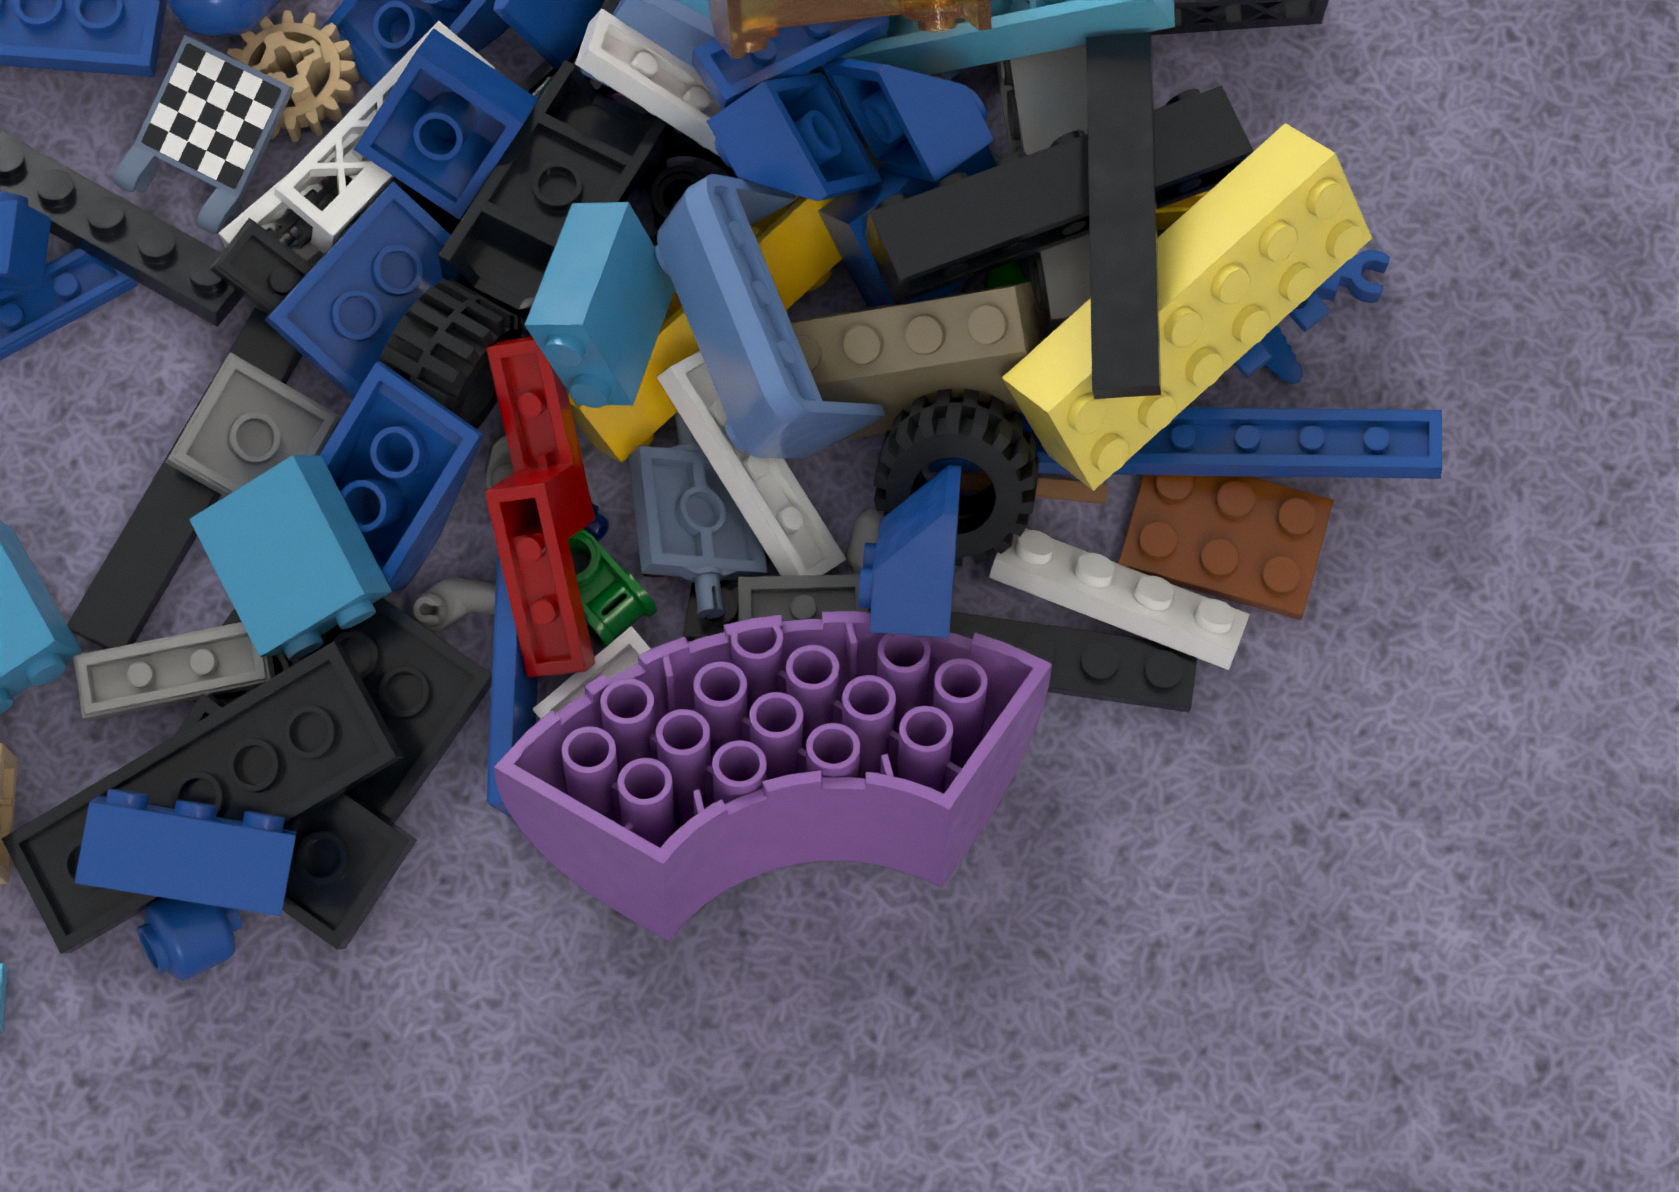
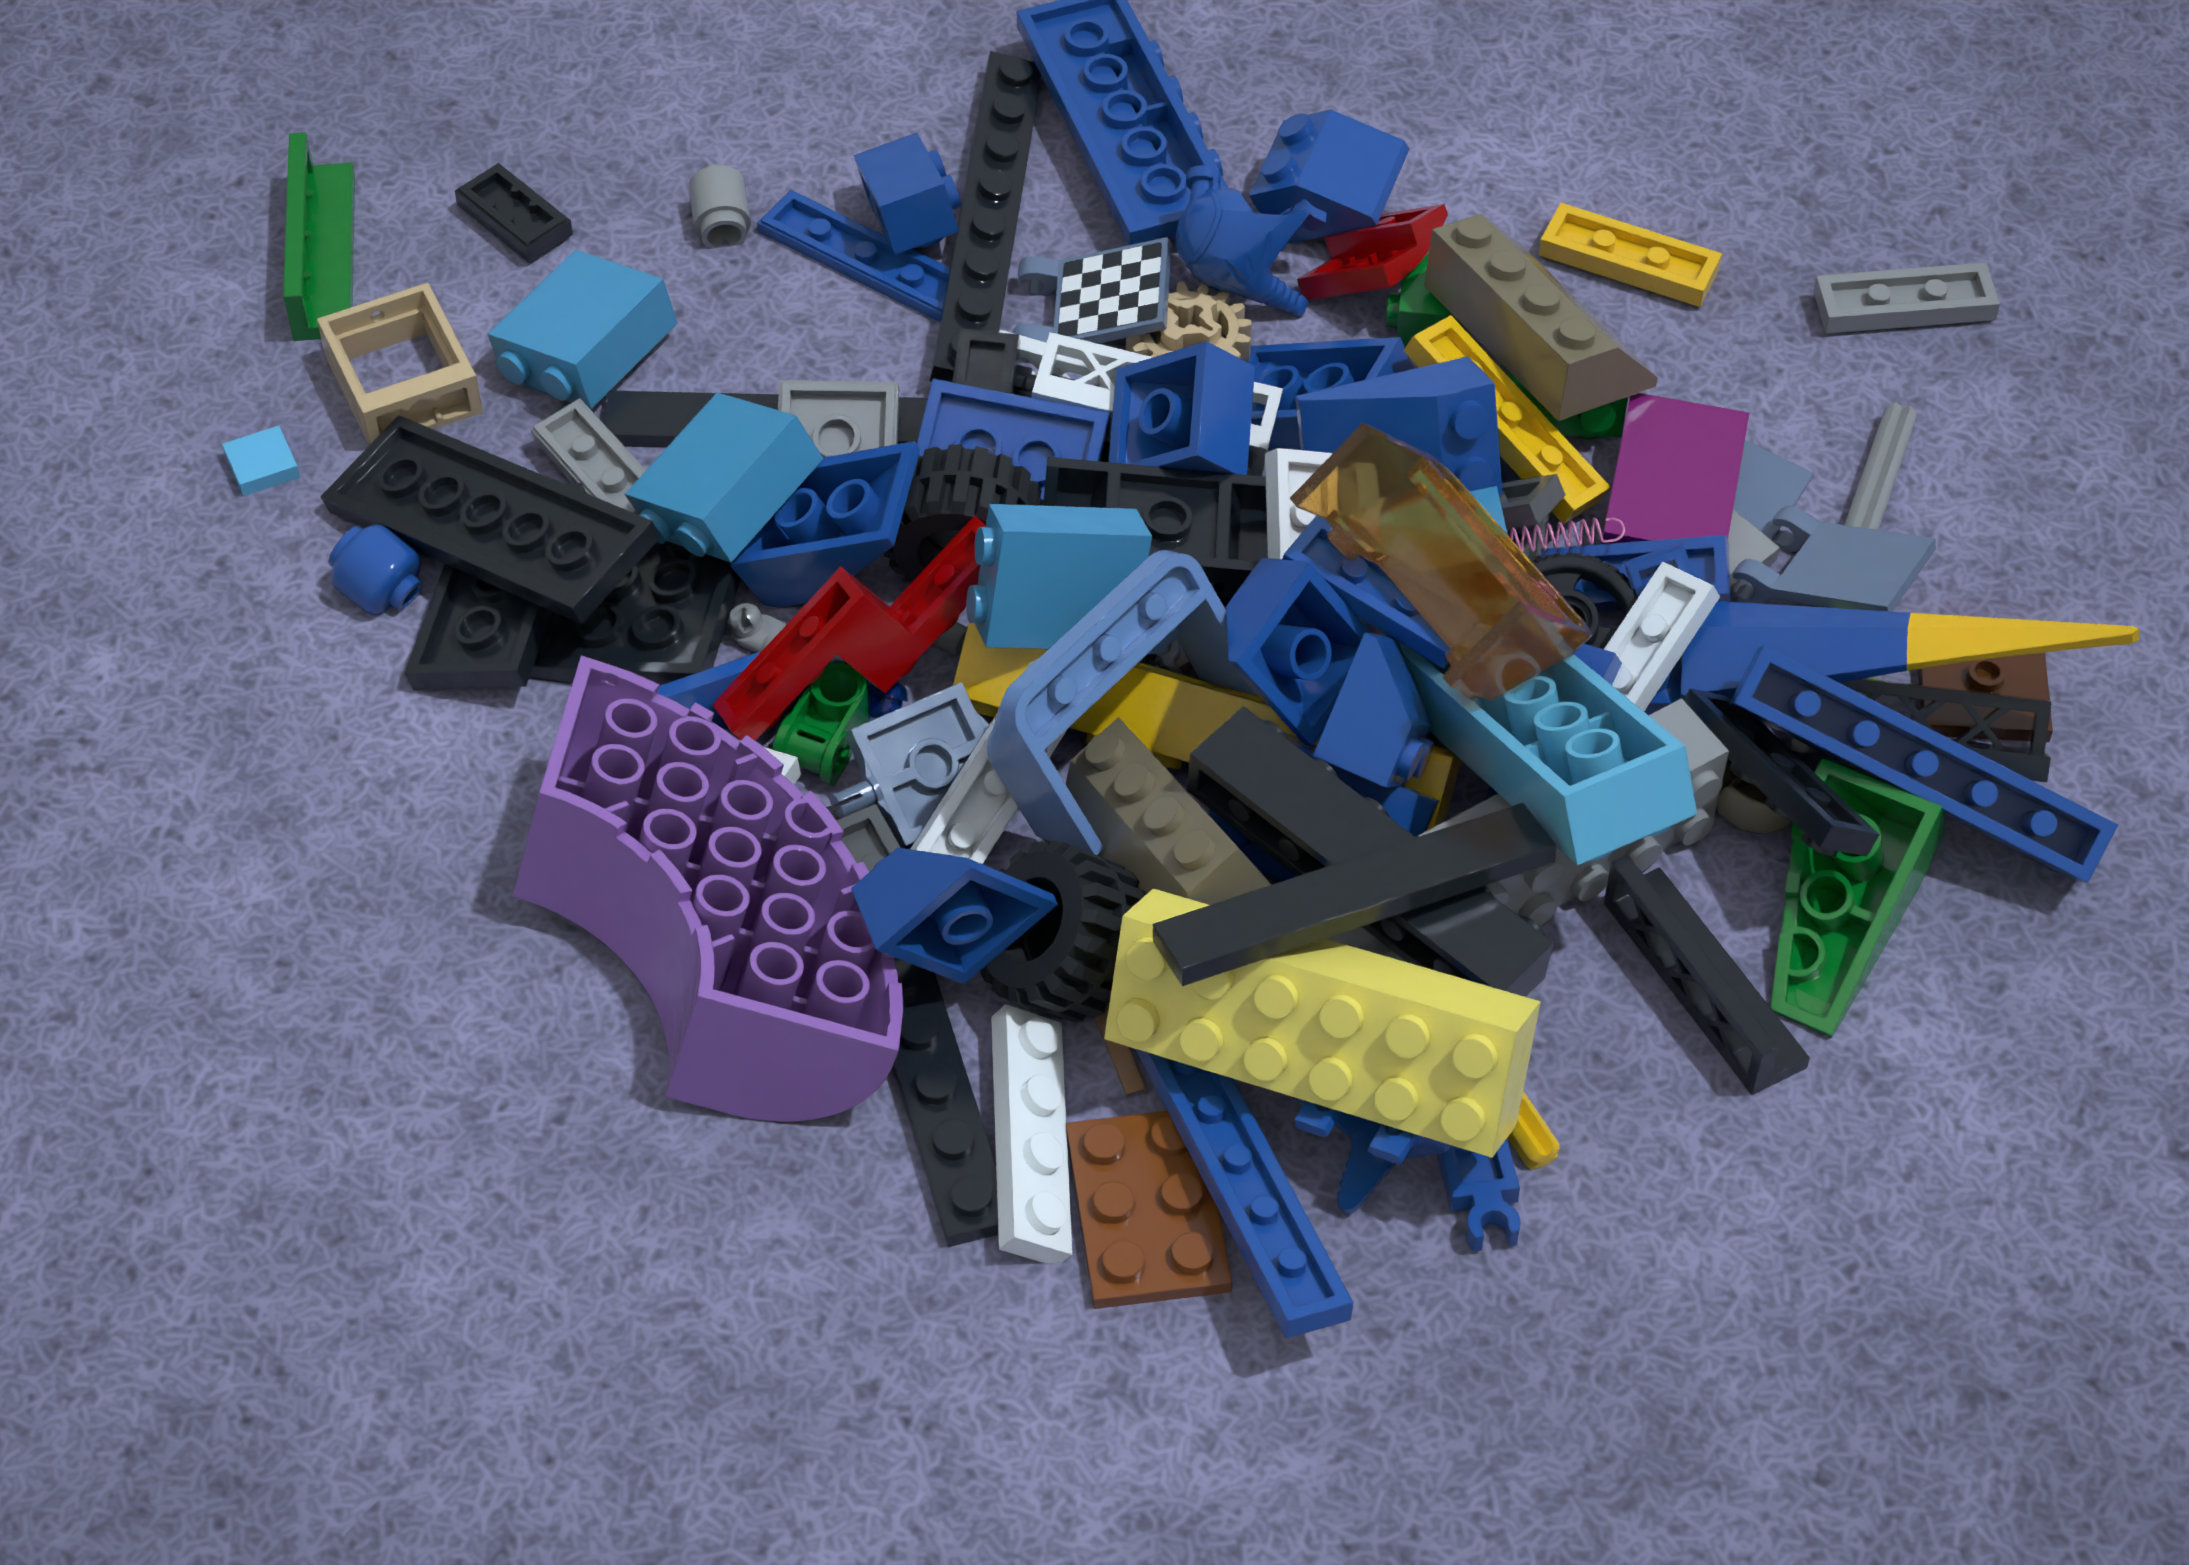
camera: 65 degrees right, 20 degrees down
(185, 853) = (418, 500): blue wedge -> none

